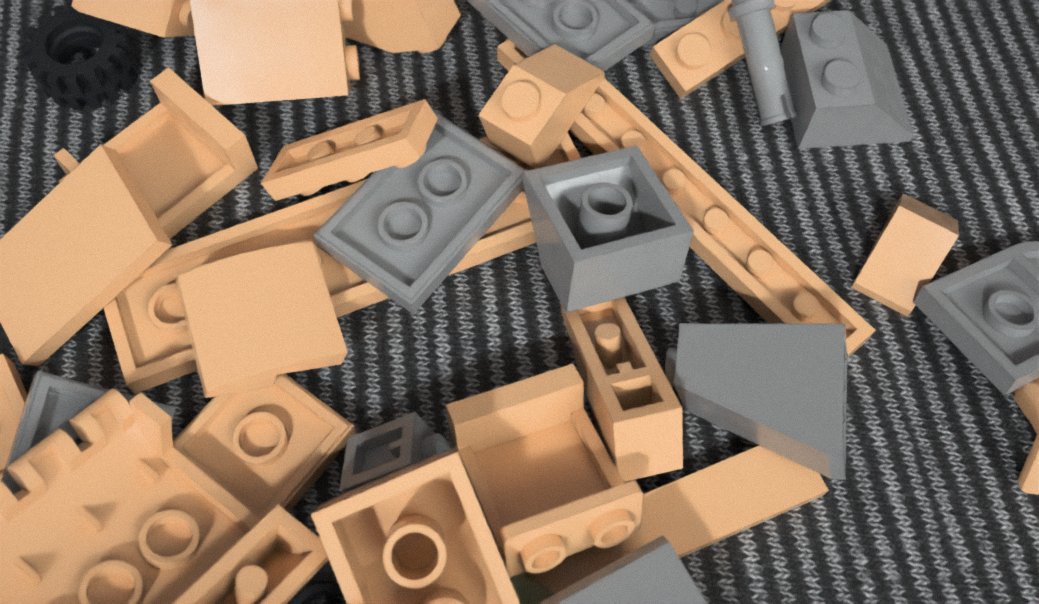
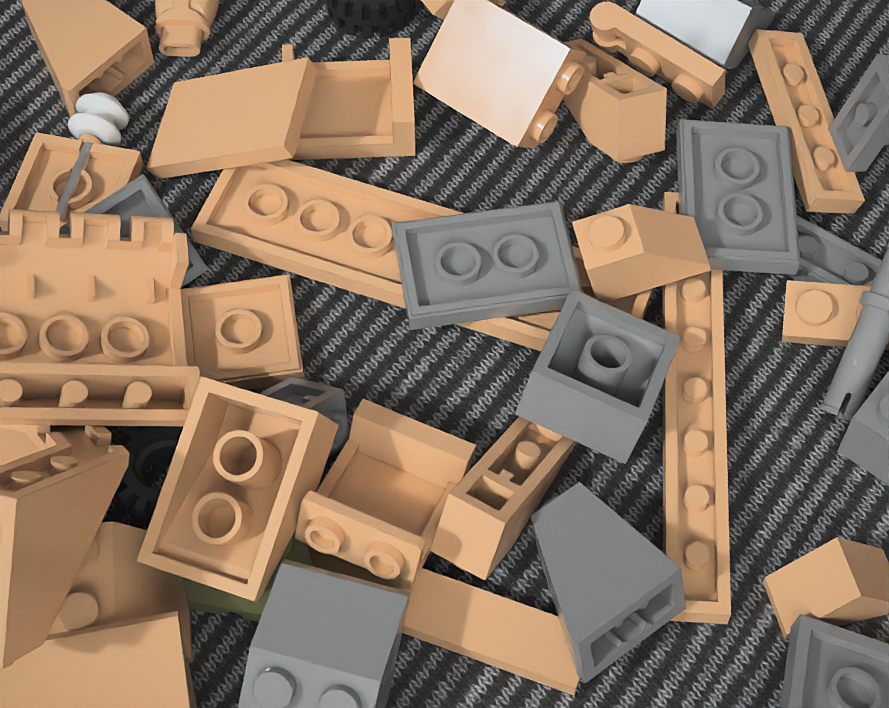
camera: 45 degrees right, 5 degrees down
(259, 318) = (306, 249): light nougat slope -> none
(351, 151) = (473, 186): light nougat plate -> none

